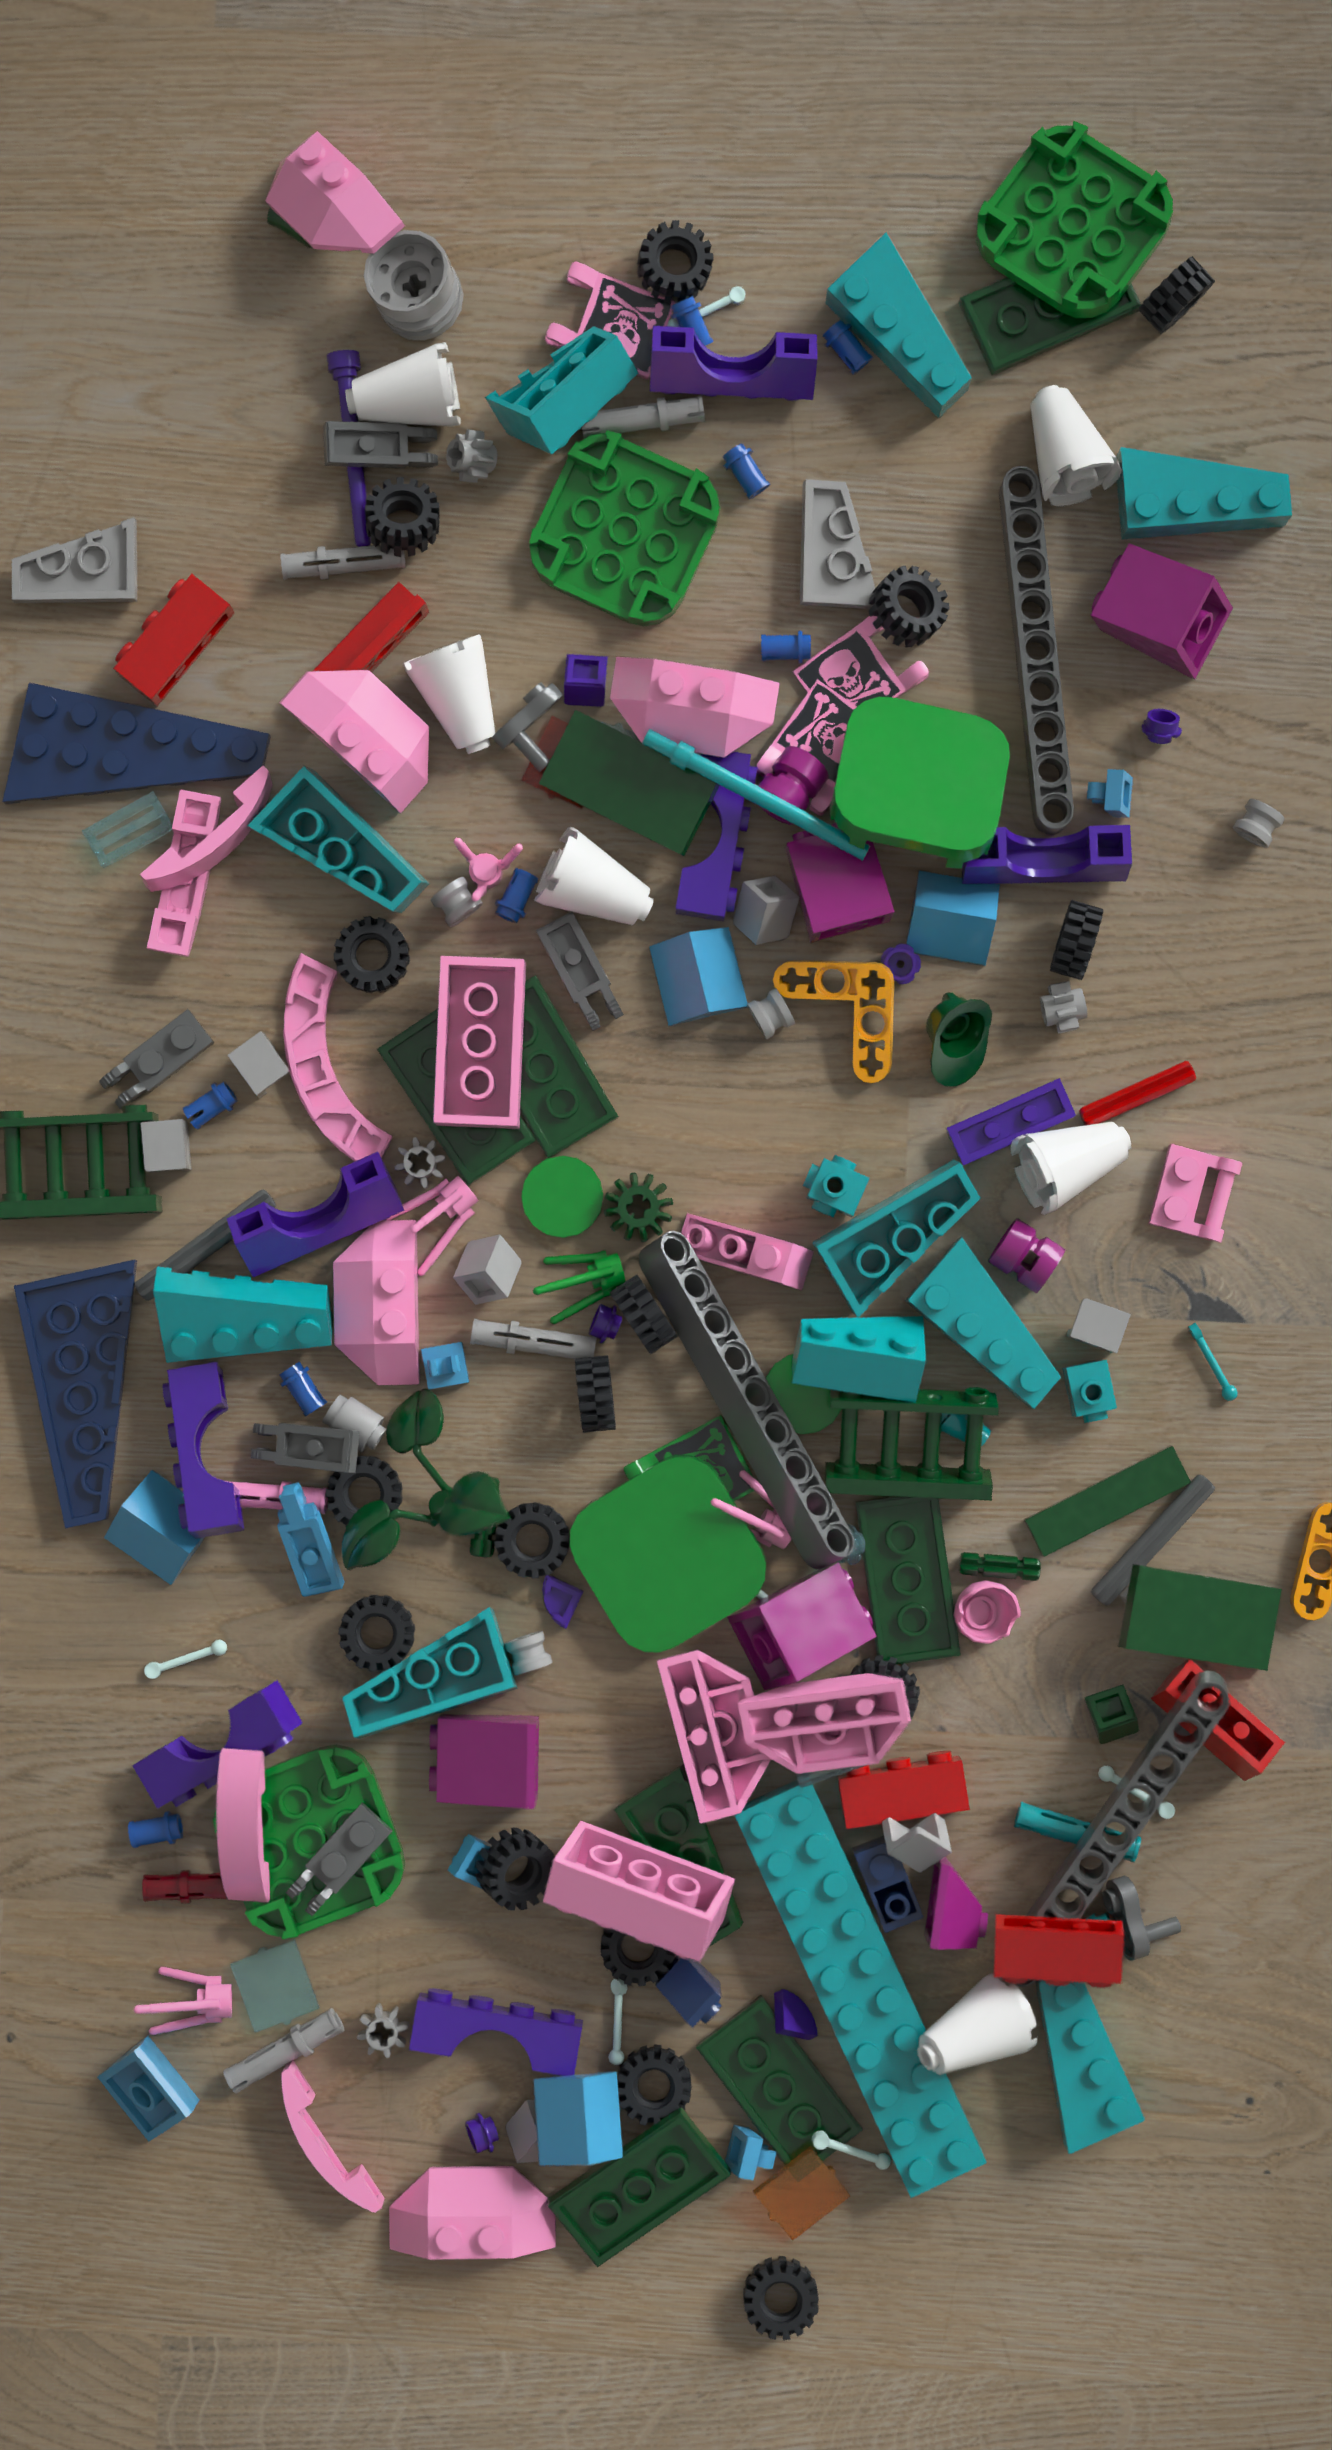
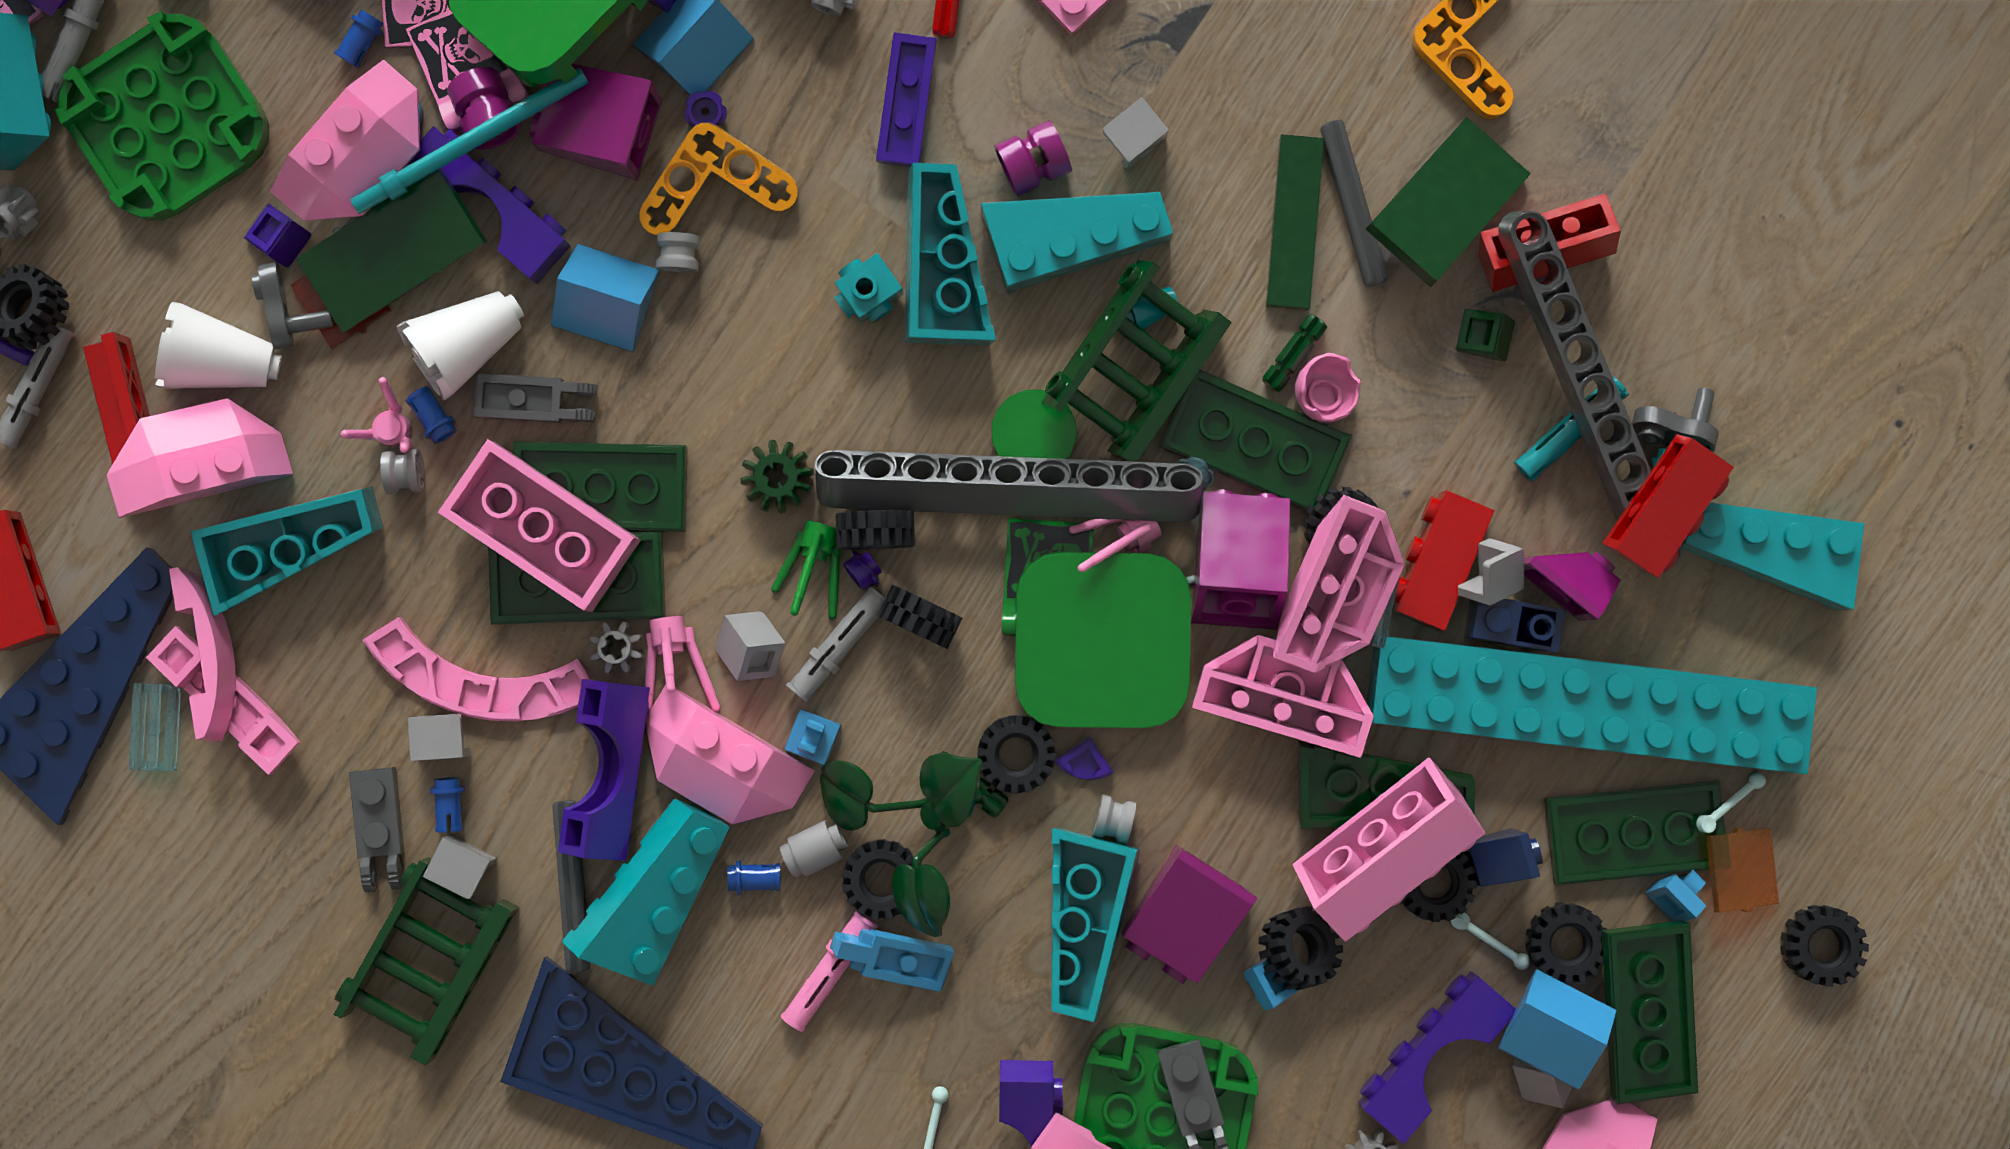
camera: 65 degrees left, 0 degrees up
(151, 1528) = (799, 1081): dark azure slope -> none
(196, 1400) = (706, 980): dark purple arch -> none
(309, 1447) = (809, 902): dark grey hinge -> none
(352, 1640) = (1013, 971): black tyre -> none
(365, 930) = (377, 576): black tyre -> none
(481, 2133) = (1517, 1123): dark purple plate -> none
(562, 1196) = (726, 539): green tile -> none
(748, 1251) = (878, 402): bright pink slope -> none
(765, 910) = (582, 200): light grey panel -> none
(793, 2016) = (1581, 781): dark purple tile -> none
(862, 1355) = (1031, 356): teal wedge -> none
(958, 1037) = (802, 98): dark green piece -> none
(980, 2028) = (1694, 619): white cone -> none
(1067, 1161) = (971, 71): white cone -> none
(1089, 1390) = (1187, 176): teal brick -> none
(1106, 1774) = (1536, 371): light aqua hinge -> none
(1229, 1391) = (1264, 55): teal hinge -> none

